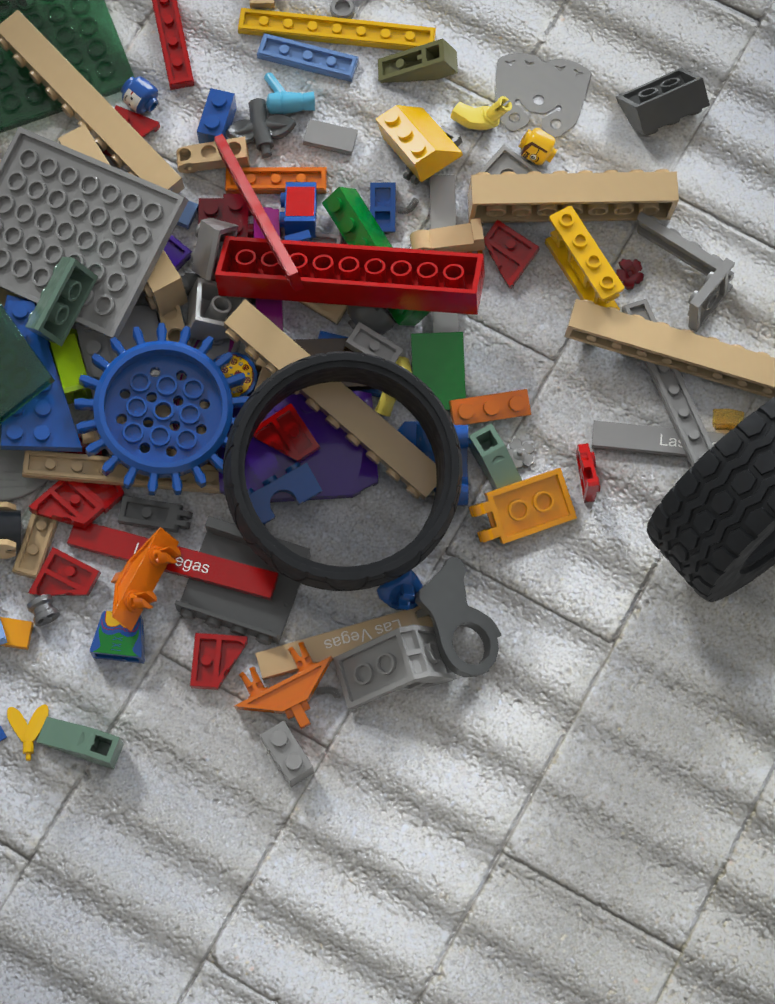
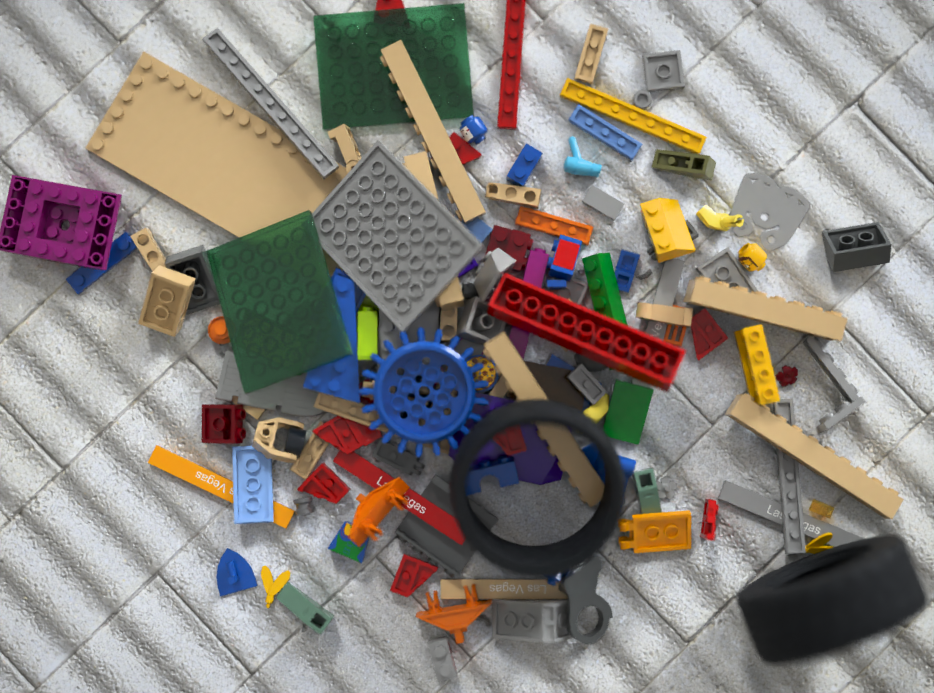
camera: 20 degrees right, 15 degrees up
(61, 300) = (372, 293): sand green slope -> none
(259, 213) = (533, 264): tile -> none
(261, 128) = (554, 181): dark grey plant -> none
(490, 407) = (655, 449): orange plate -> none

